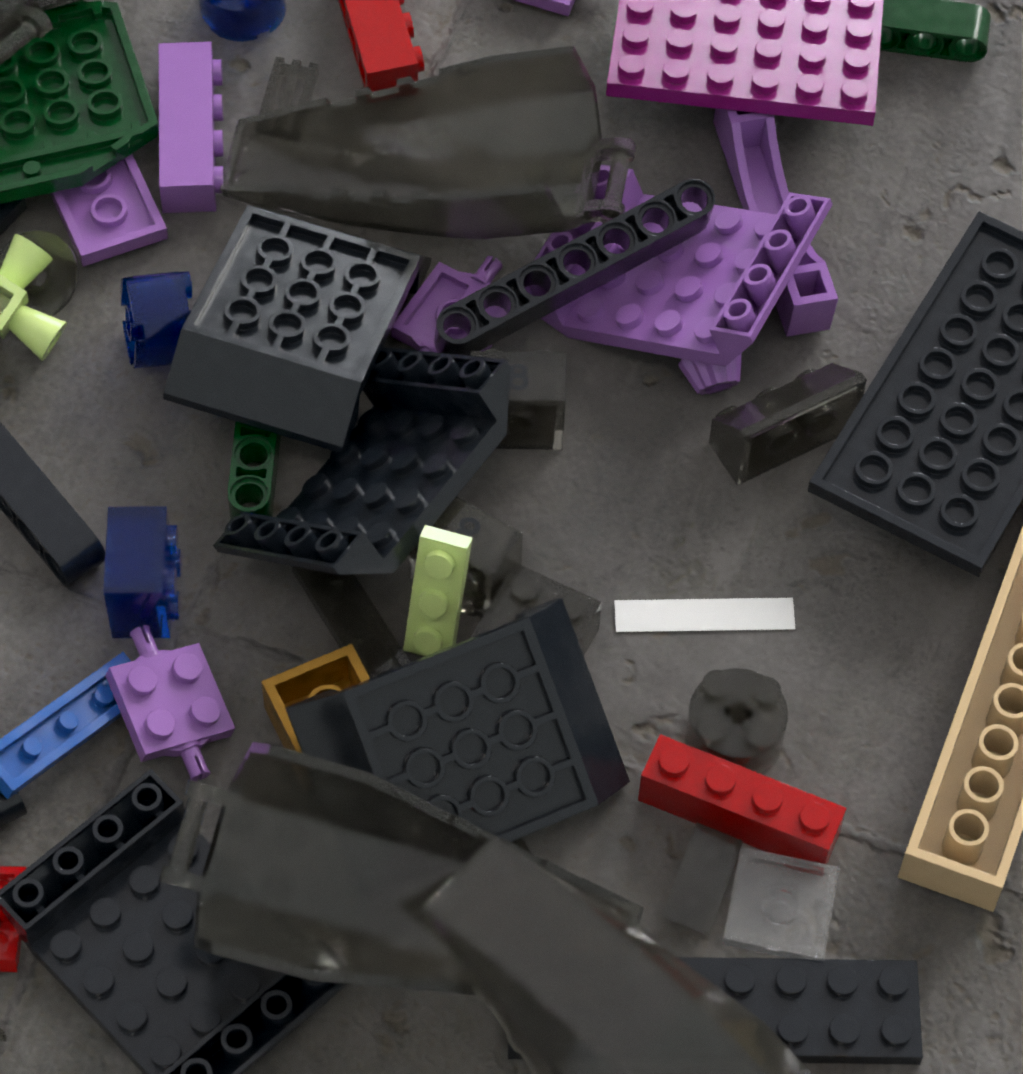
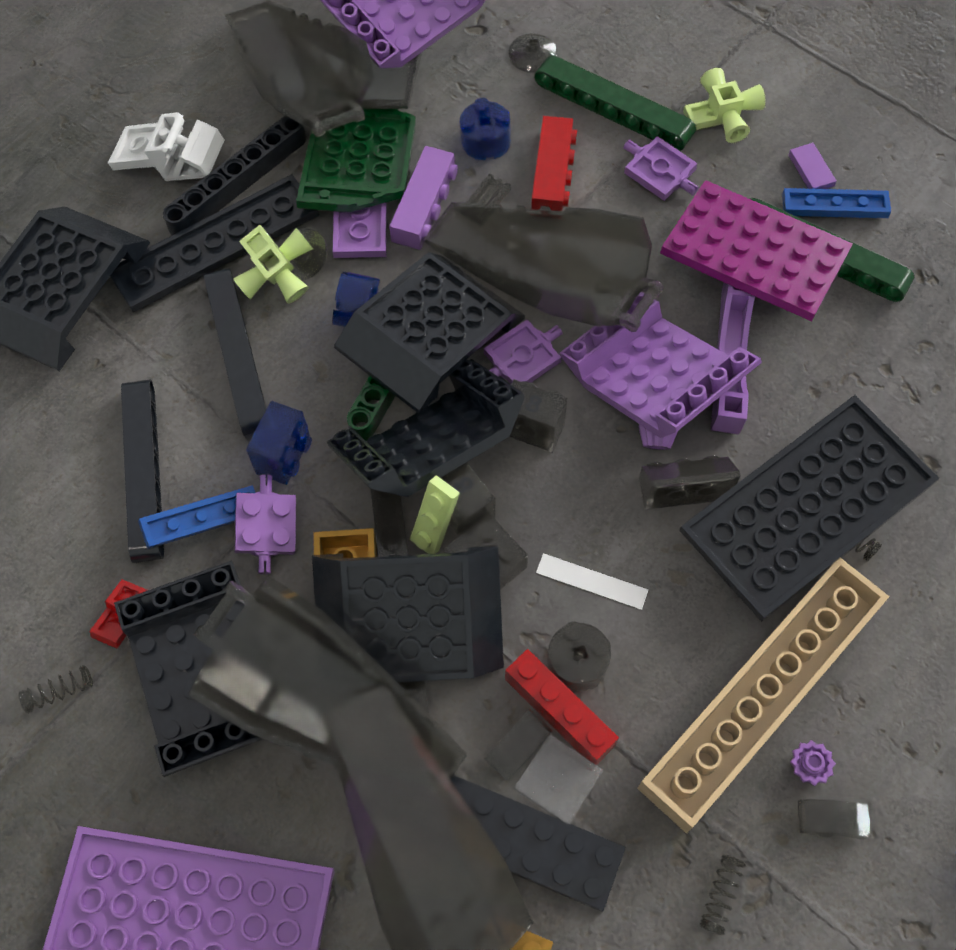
camera: 25 degrees right, 5 degrees up
(586, 251) = (606, 340): black beam -> none

